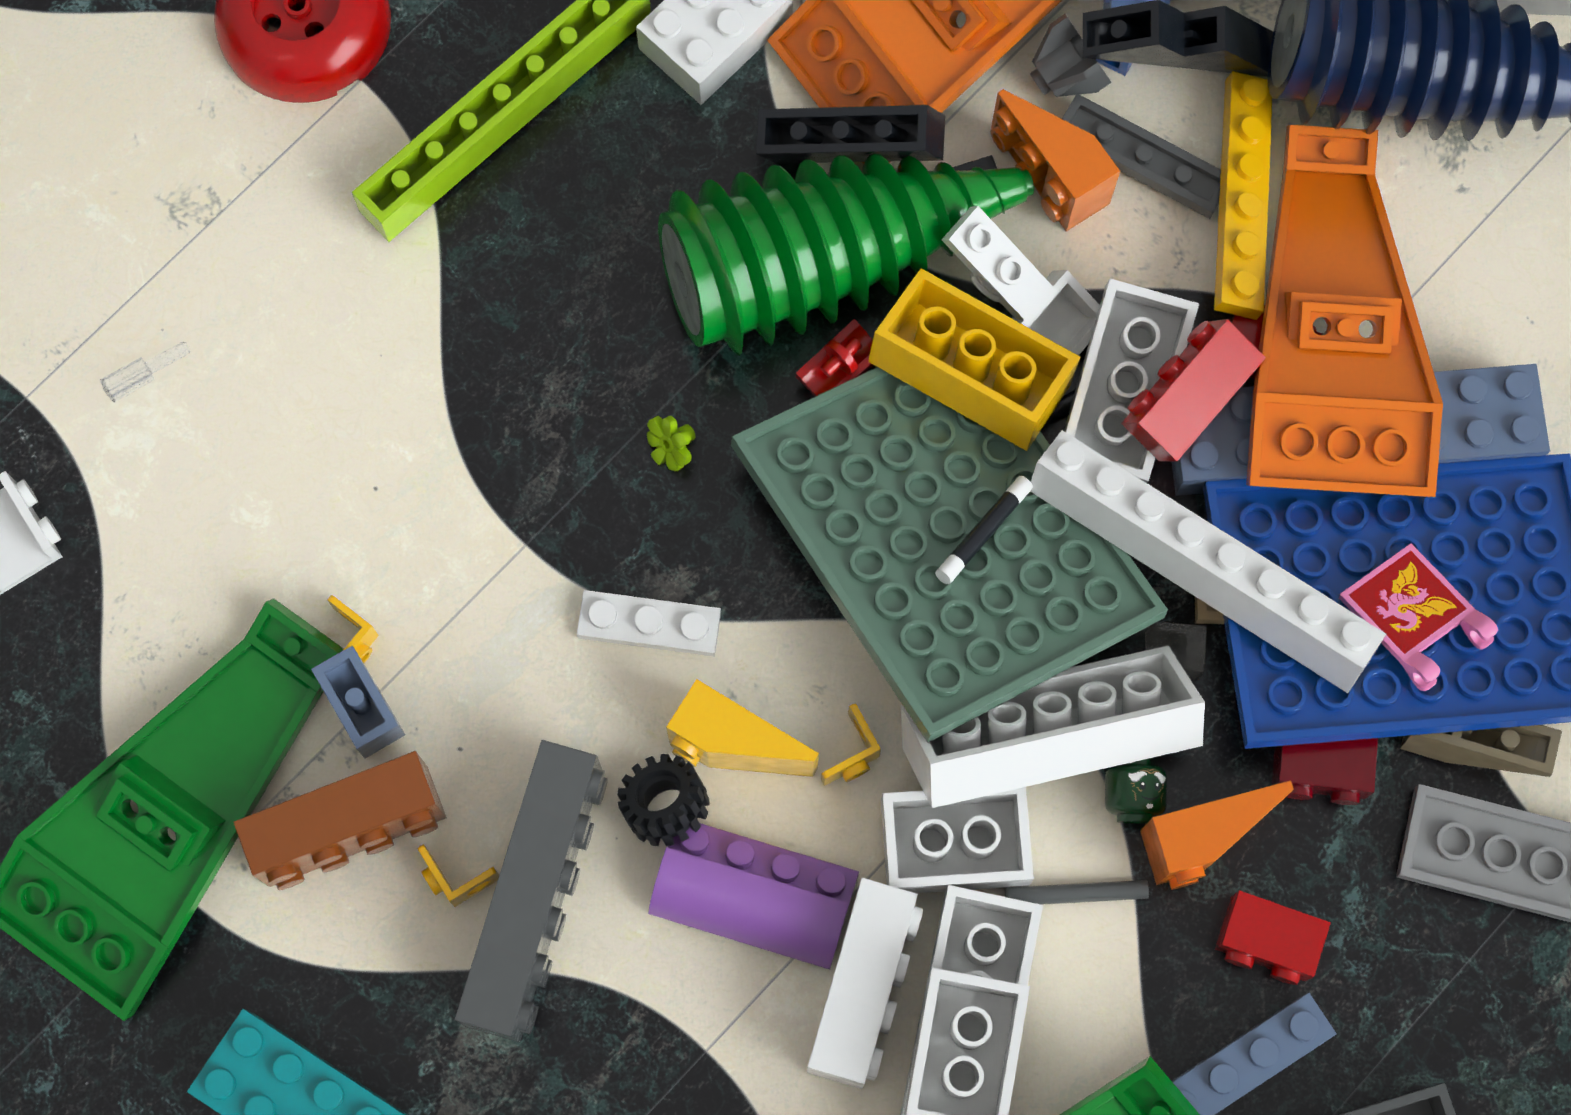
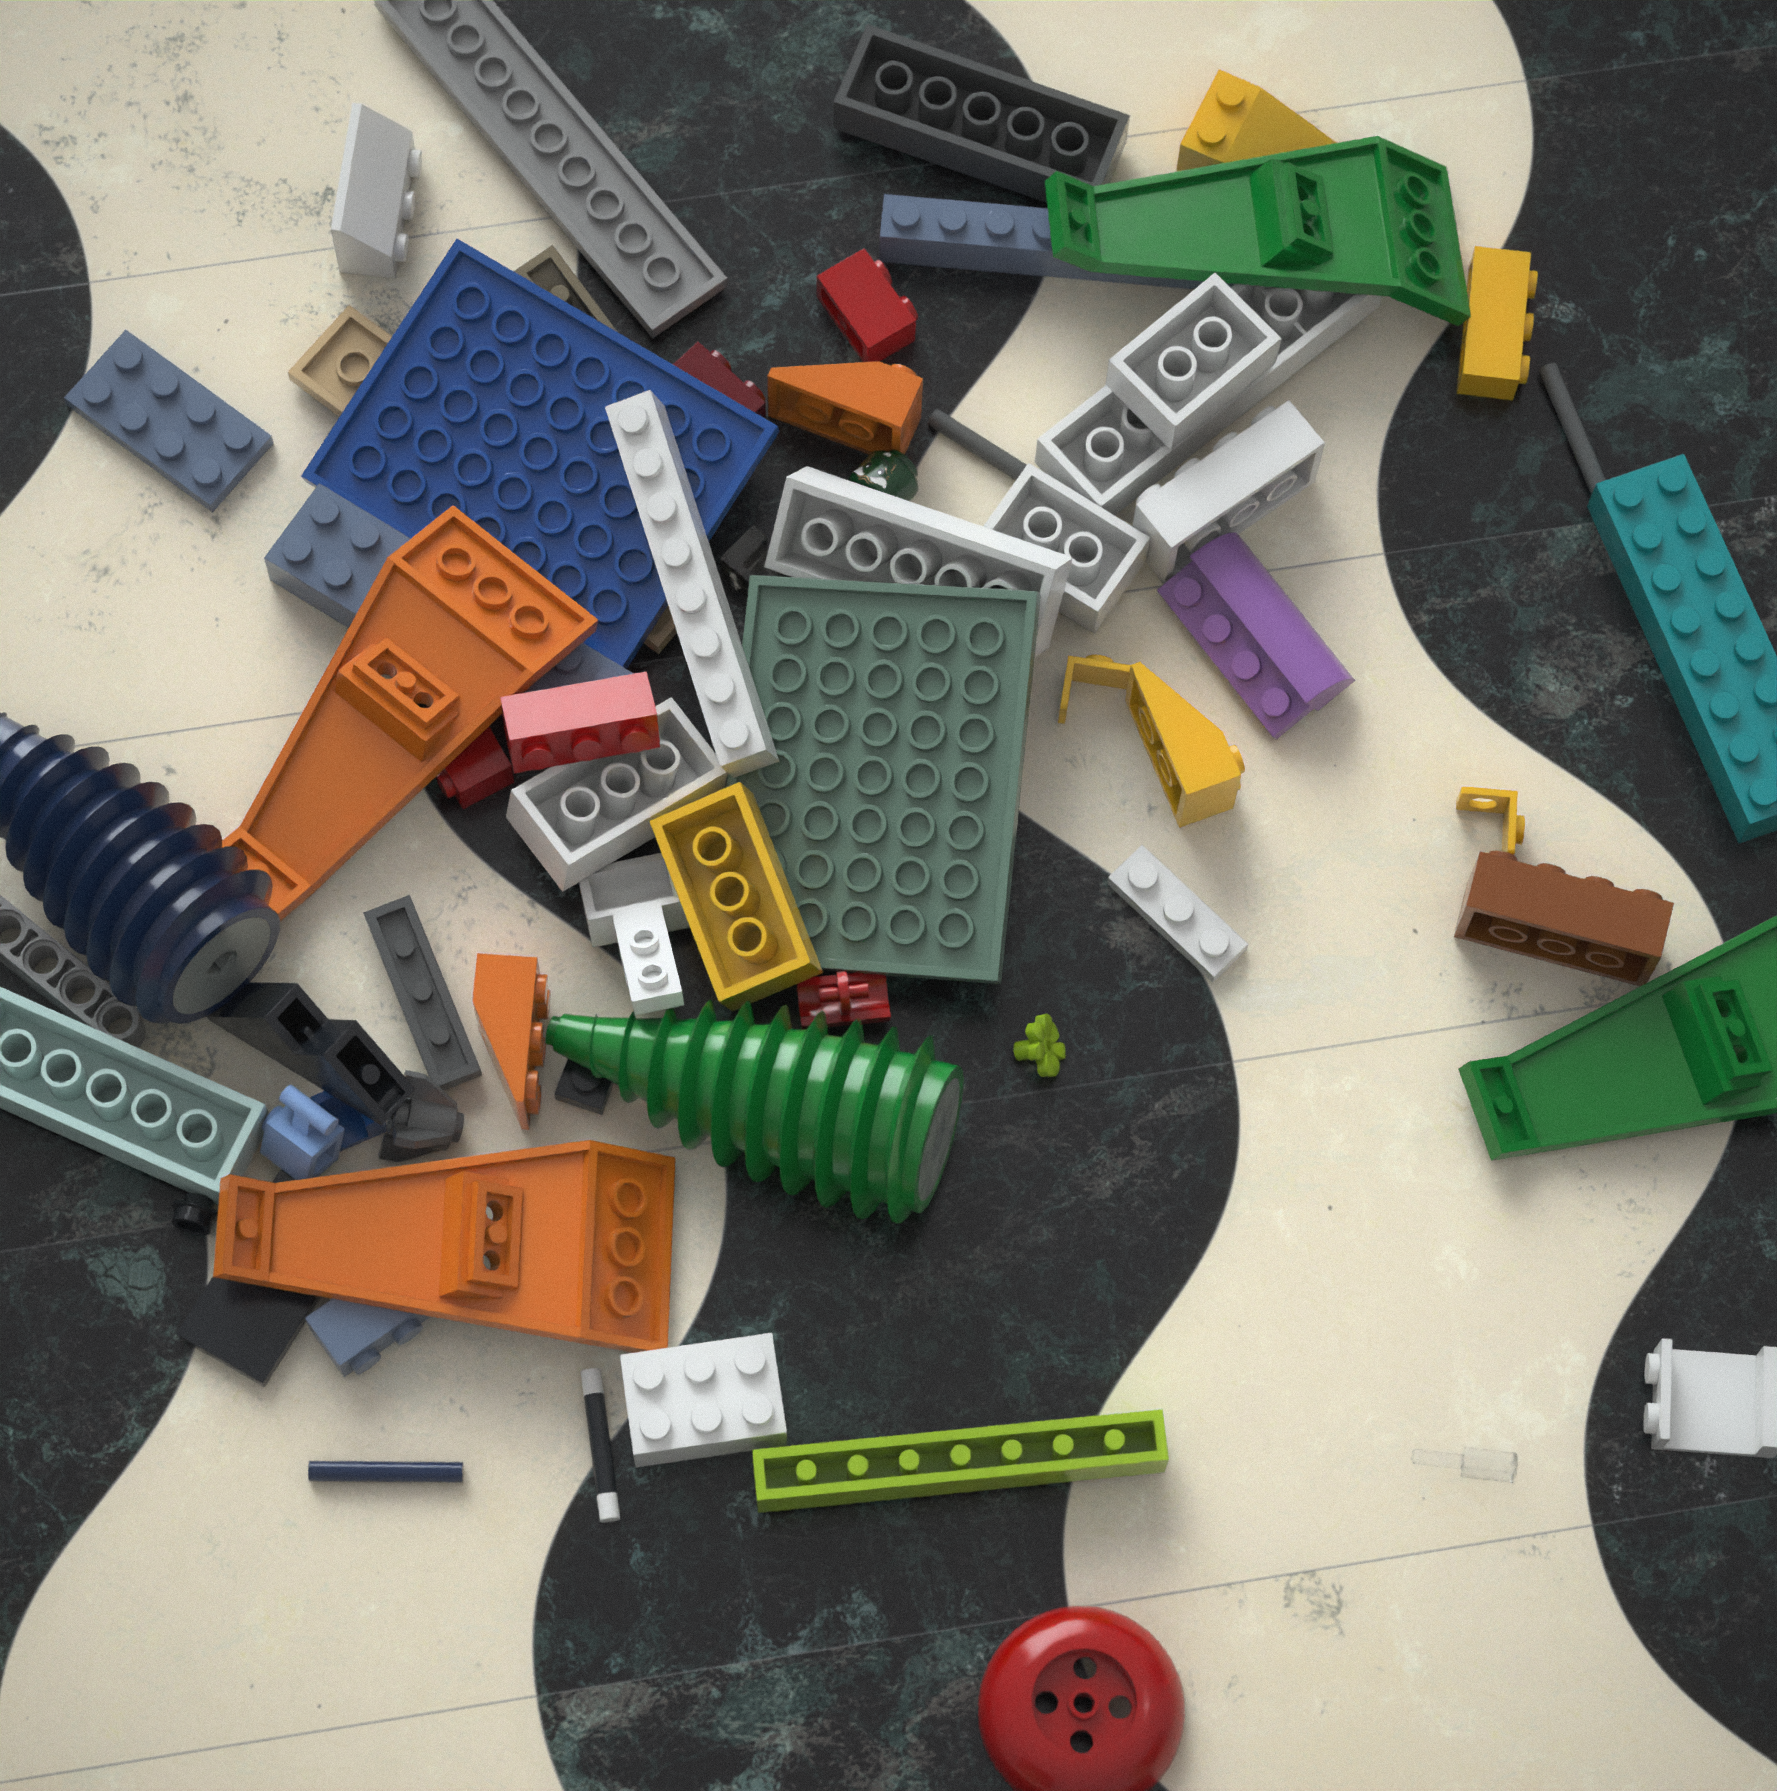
camera: 145 degrees left, 5 degrees down
(358, 702) = (1481, 1004): sand blue slope -> none
(366, 634) = (1444, 1065): yellow bracket -> none
(531, 891) = (1443, 749): dark grey brick -> none
(673, 819) = (1308, 749): black tyre -> none
(850, 131) = (677, 1178): black brick -> none
(984, 530) = (849, 742): black bar -> none
(1243, 196) = (376, 879): yellow plate -> none
(1415, 609) = (552, 438): flag -> none

